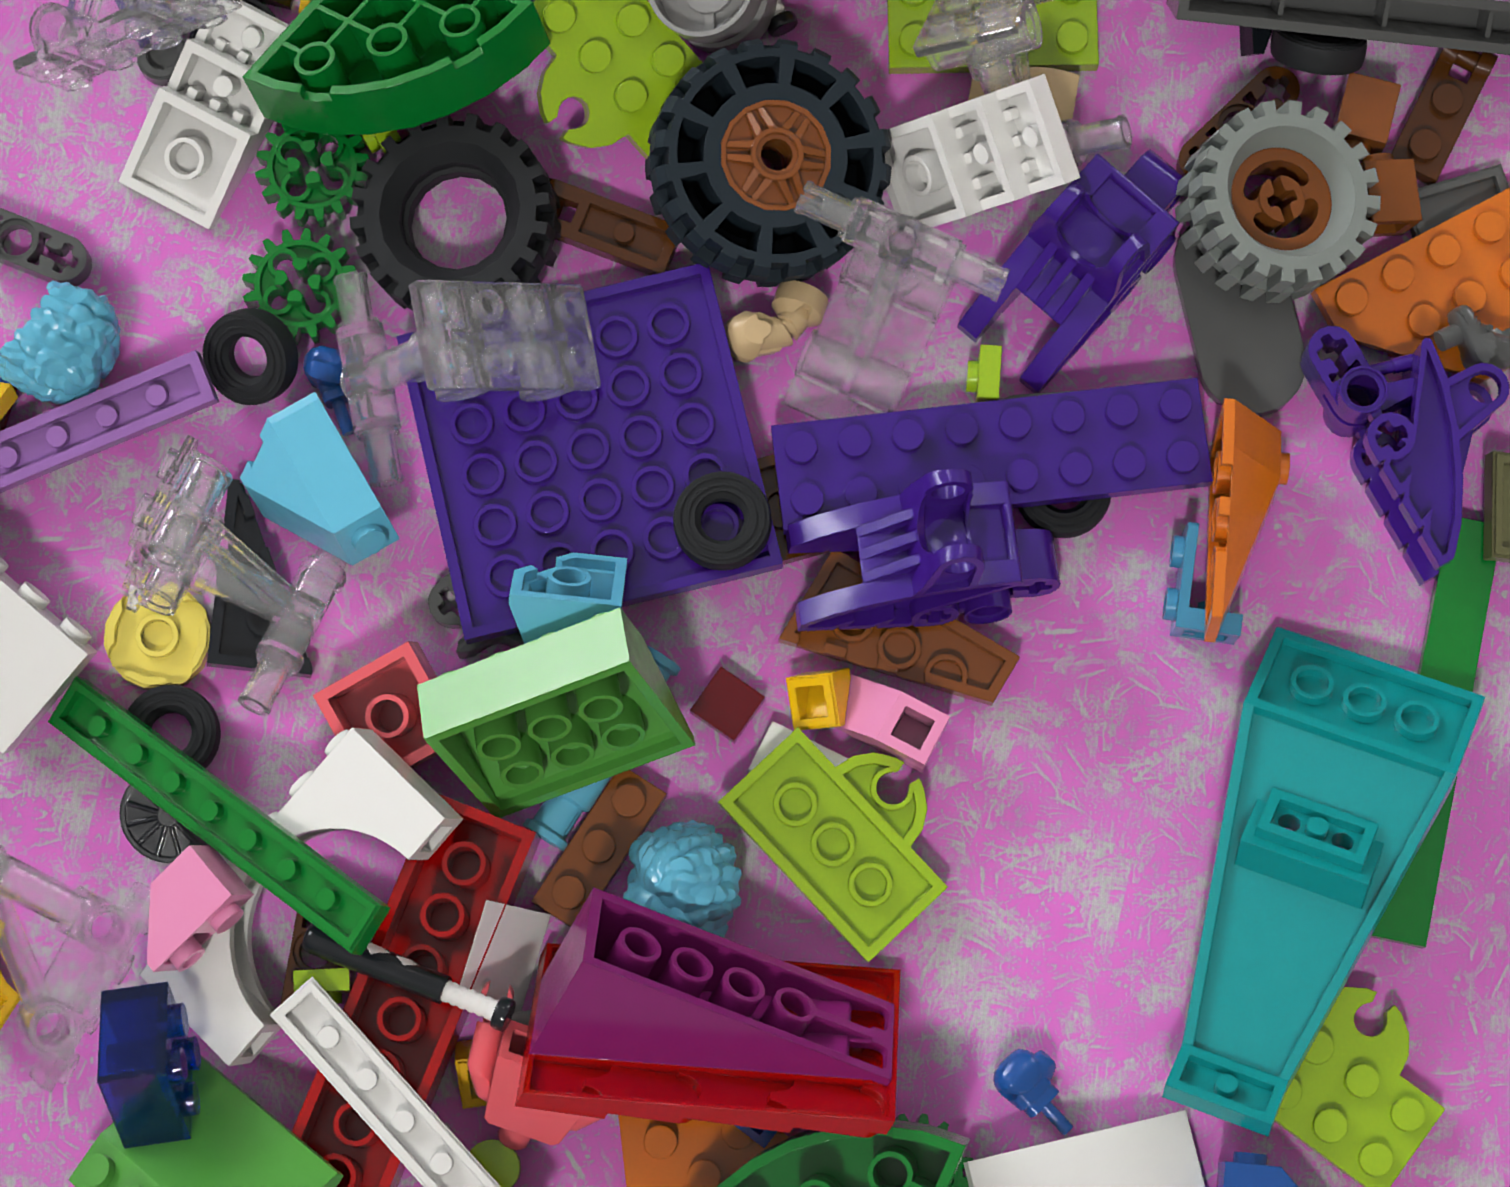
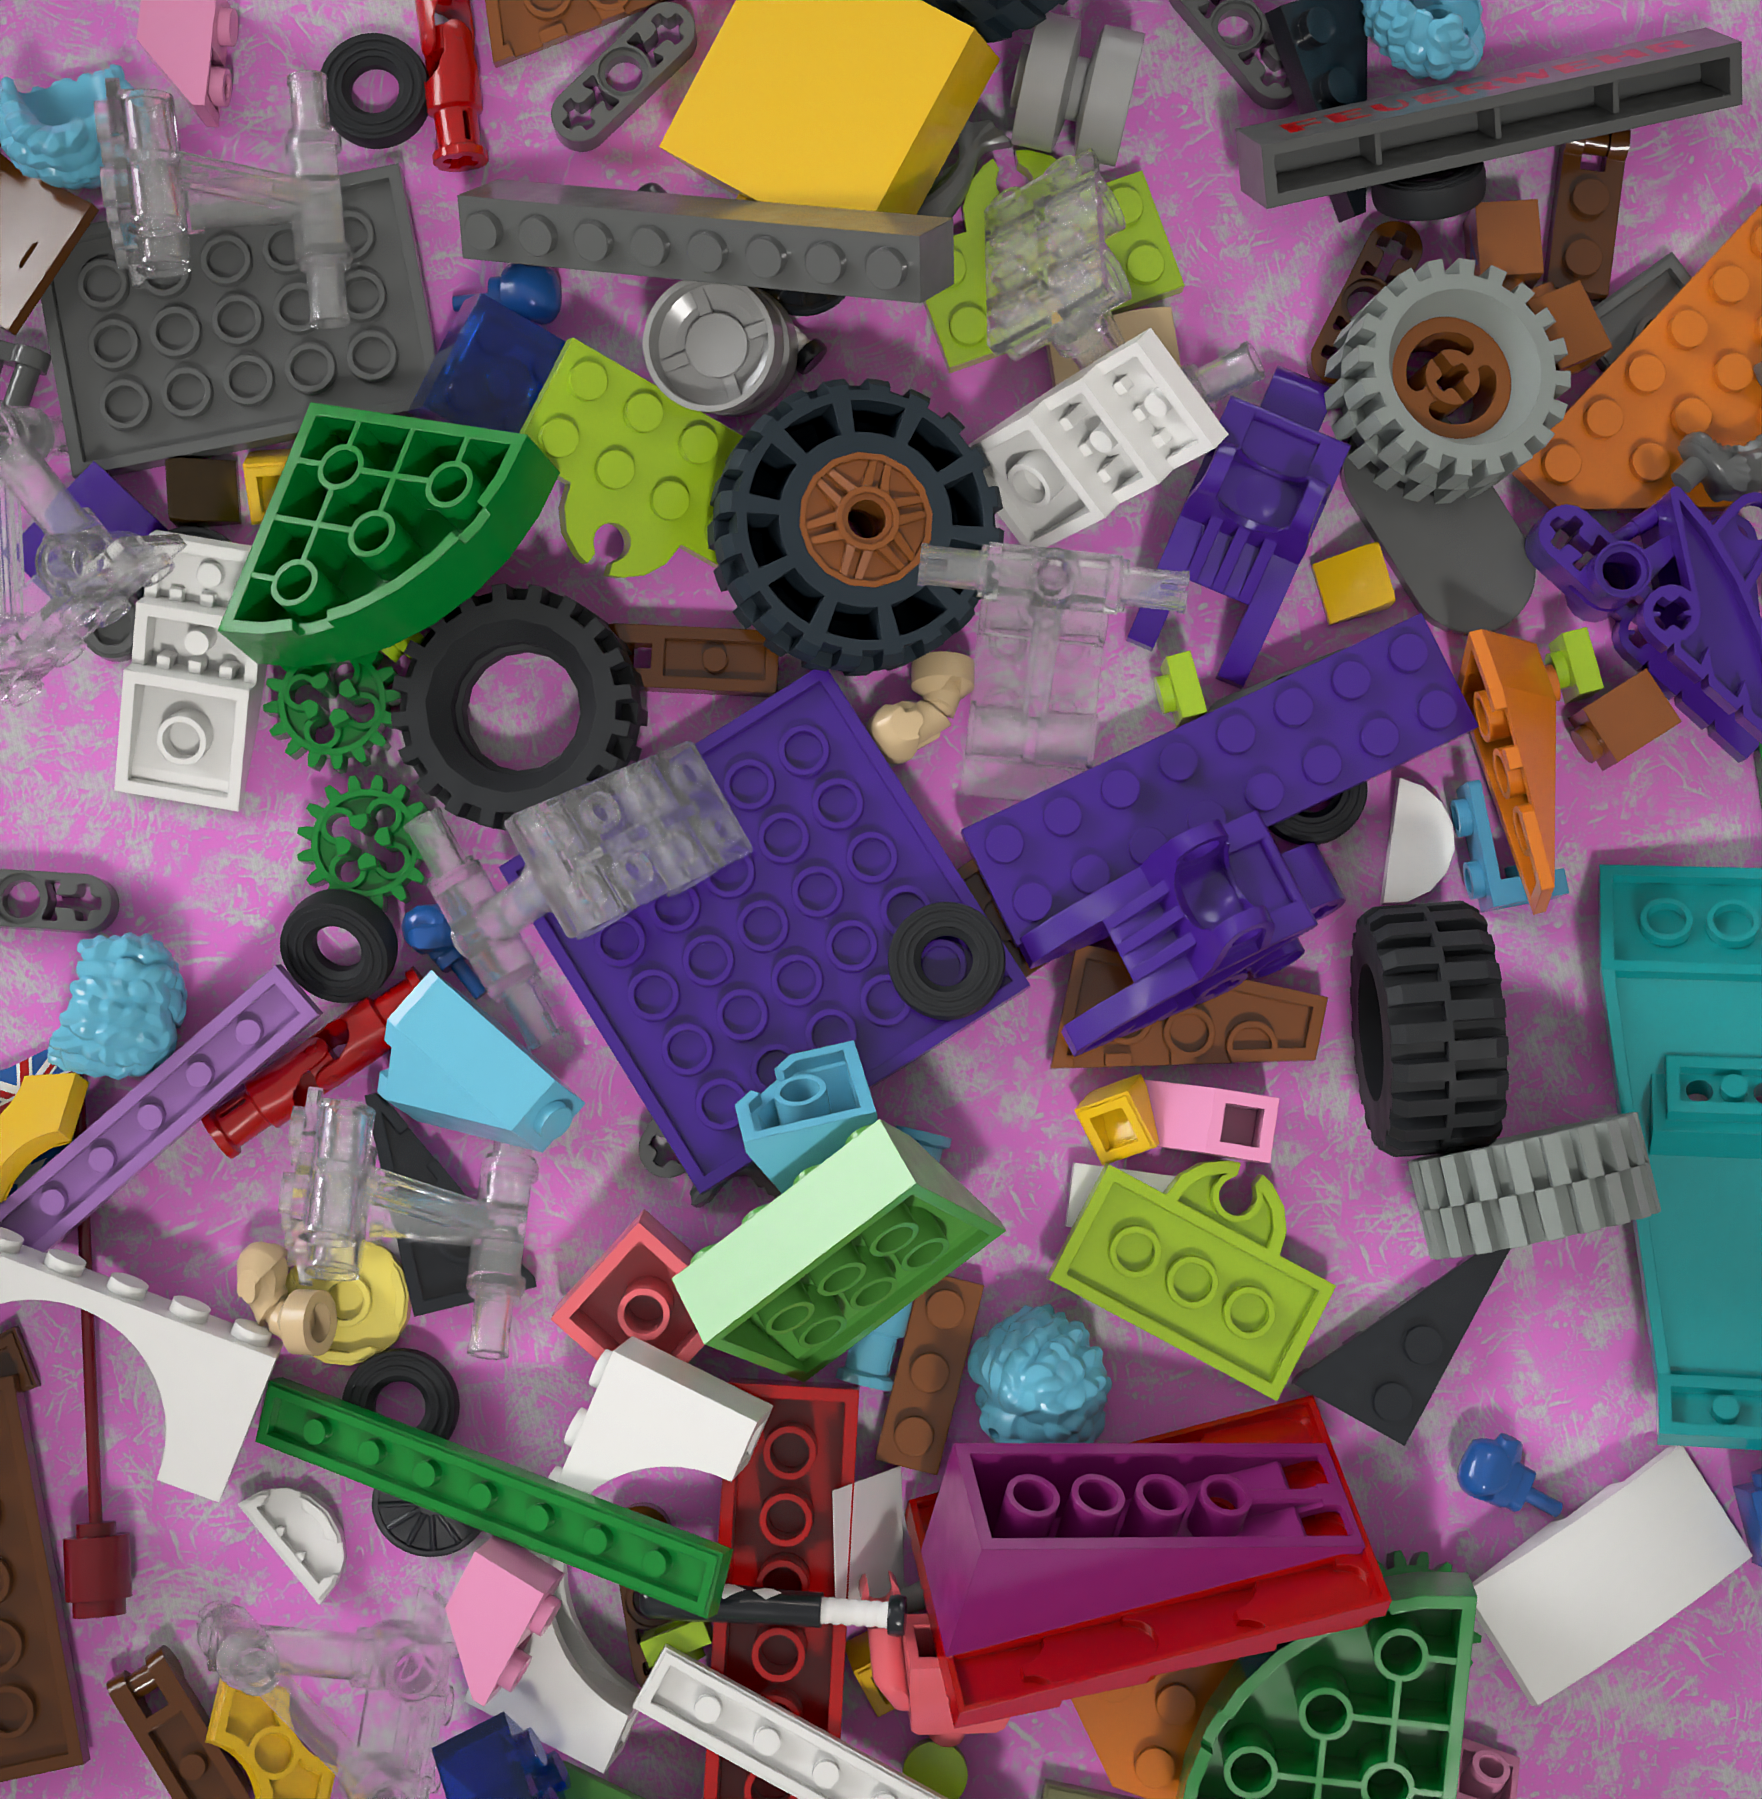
camera: 20 degrees left, 5 degrees up
(58, 808) = (302, 1534): none -> white tile
(118, 632) = (303, 1319): none -> tan arm
(142, 460) = (285, 1083): none -> red piece
(727, 704) = (1017, 1160): dark red tile -> none
(976, 967) = (1397, 1362): none -> black wing
(1084, 696) = (1428, 1028): none -> black tyre
(1128, 848) = (1535, 1187): none -> light grey wheel
(1136, 563) = (1417, 844): none -> white tile
(1154, 341) = (1354, 583): none -> yellow slope
(1308, 462) = (1575, 665): none -> lime plate
(1333, 518) = (1622, 721): none -> dark orange brick

